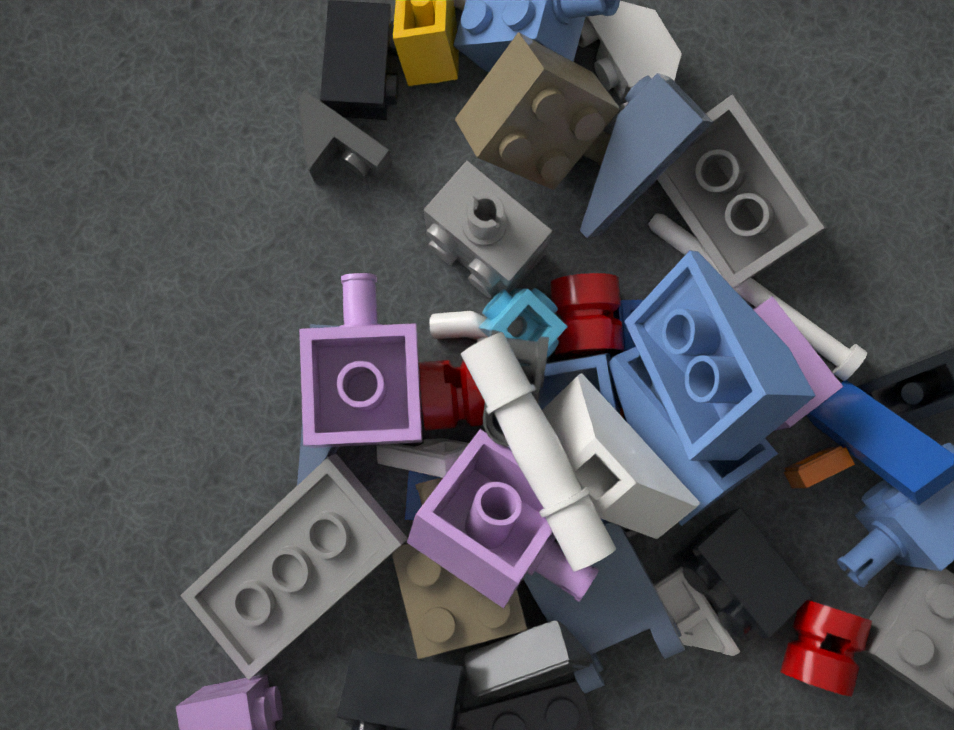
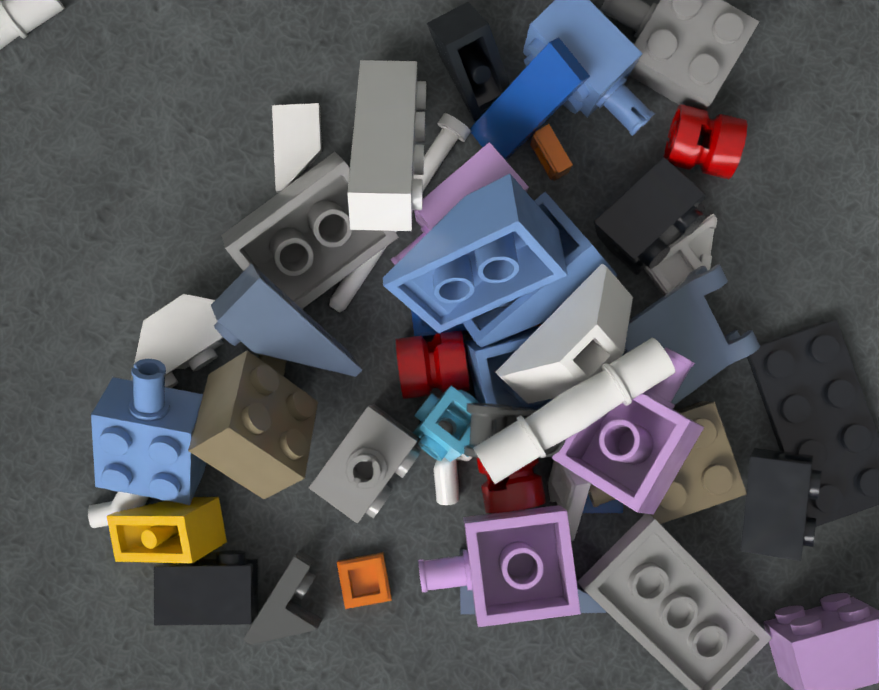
camera: 90 degrees left, 5 degrees up
(353, 229) = (364, 580): none -> orange tile
(525, 661) = (739, 401): slope -> none
(838, 273) = (384, 147): none -> white brick
(841, 189) = (295, 140): none -> white tile

